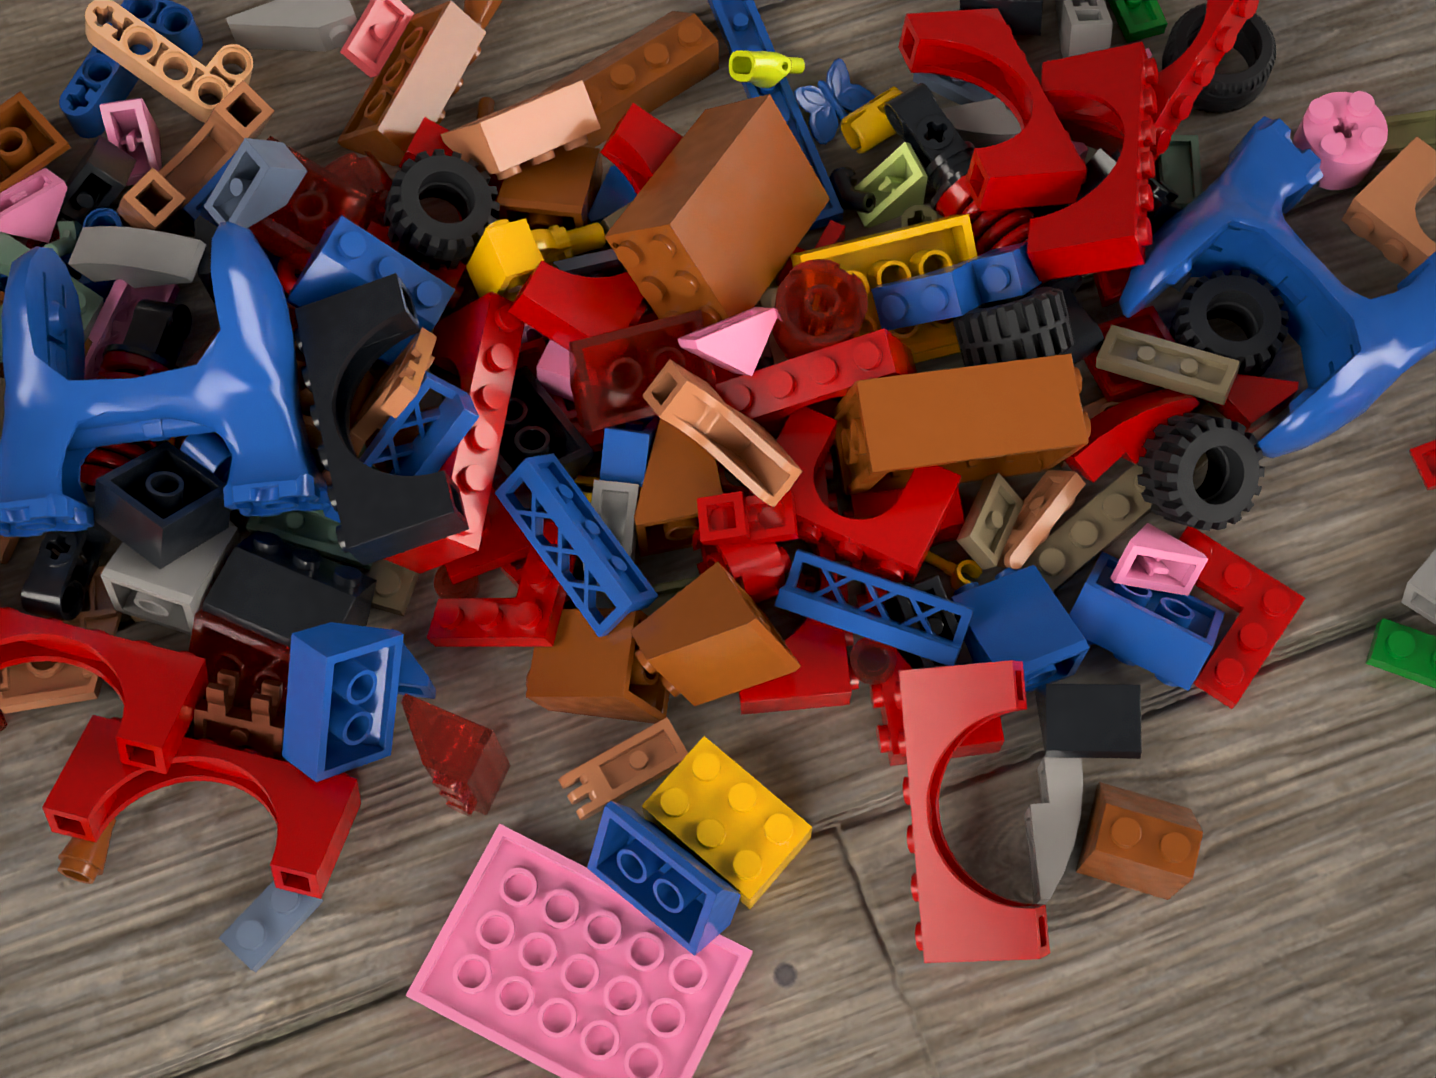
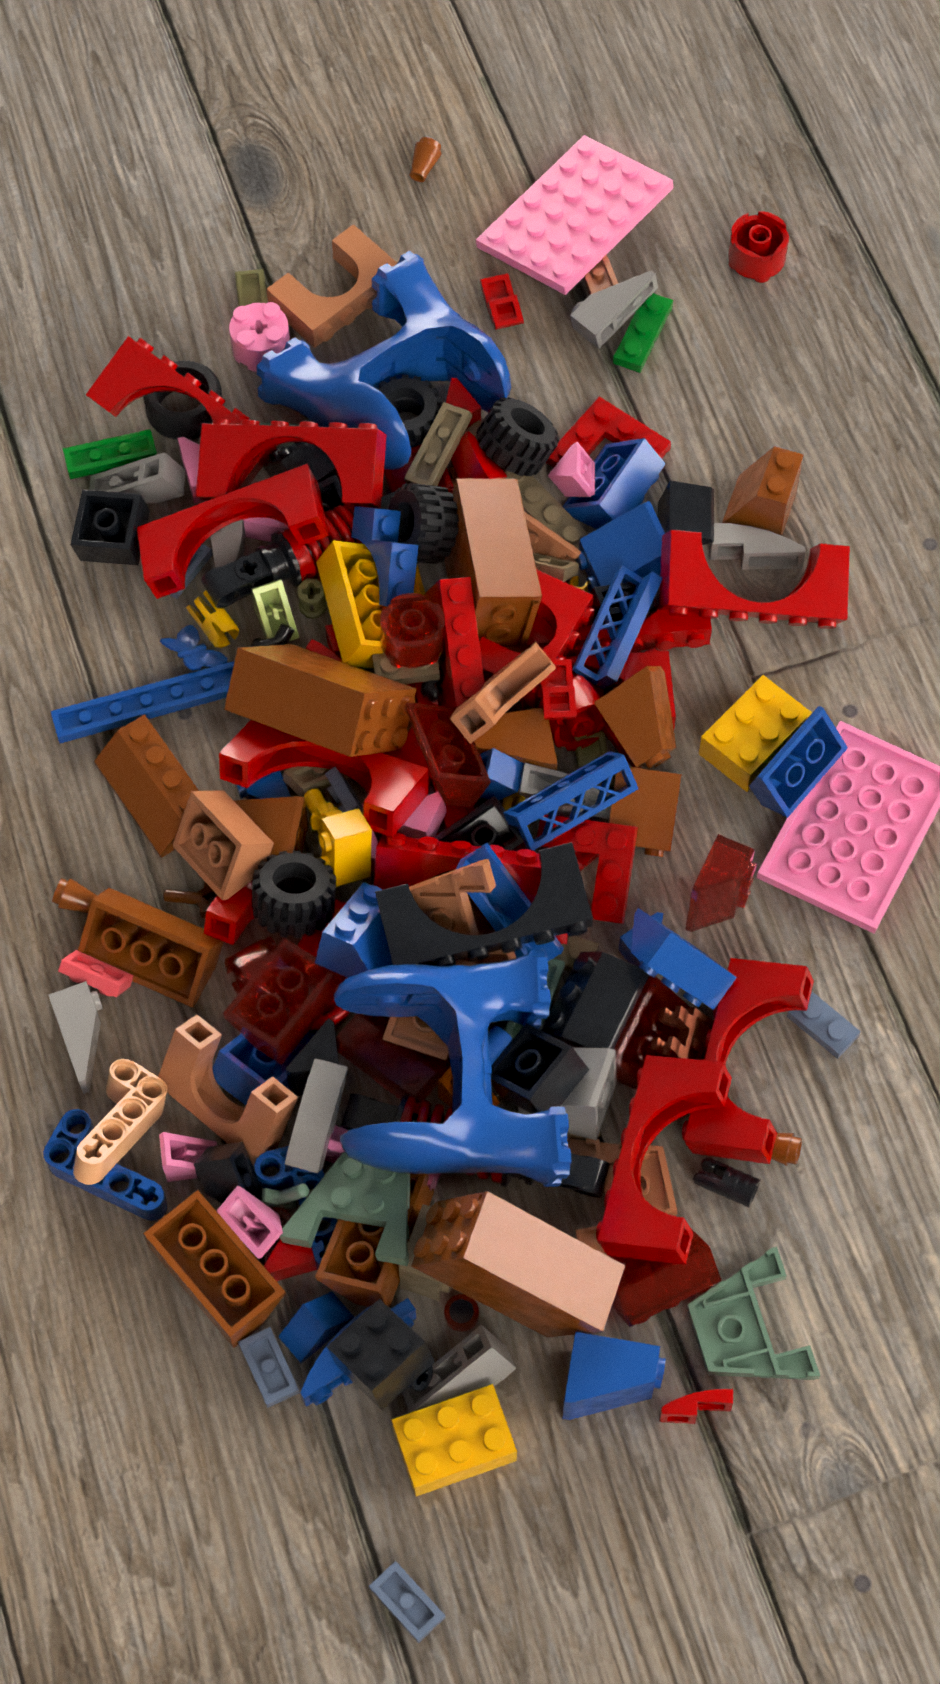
camera: 90 degrees left, 5 degrees down
(35, 784) = (727, 1181): none -> black hinge
(255, 183) = (281, 1008): sand blue slope -> none
(625, 768) = (715, 796): nougat hinge -> none
(733, 342) = (428, 682): bright pink slope -> none
(763, 68) = (171, 686): neon yellow piece -> none
(872, 661) = (650, 635): clear red tile -> none

